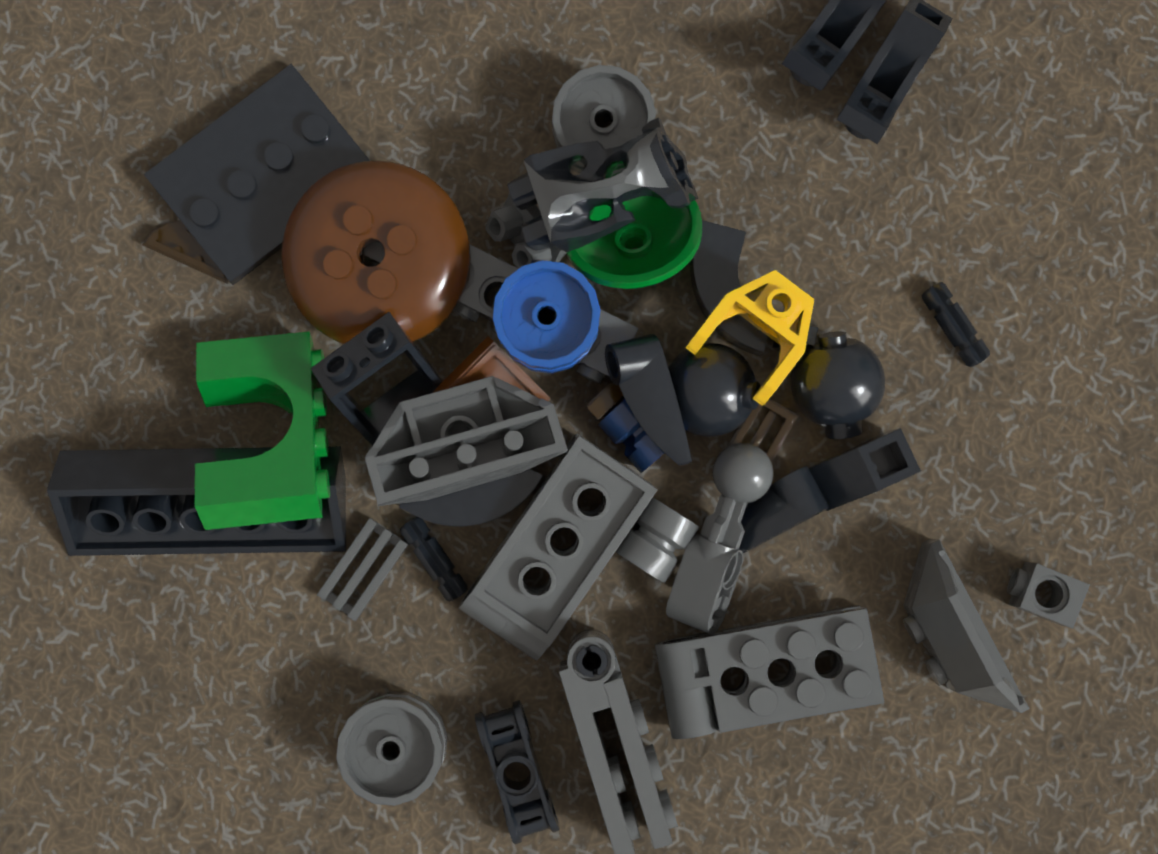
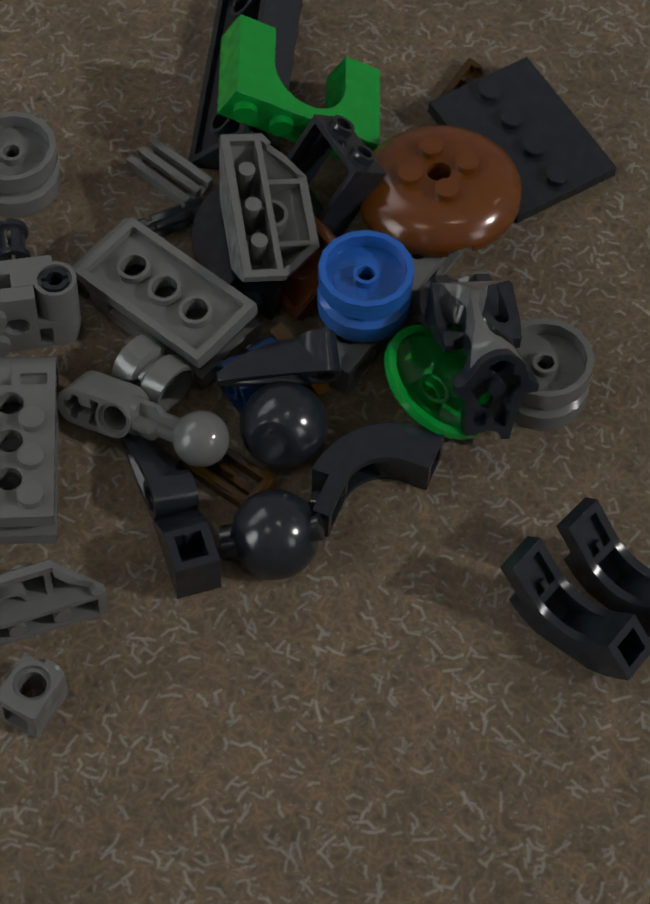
camera: 95 degrees right, 30 degrees down
(786, 328) = (346, 466): yellow piece -> none
(955, 324) = (317, 657): black axle -> none

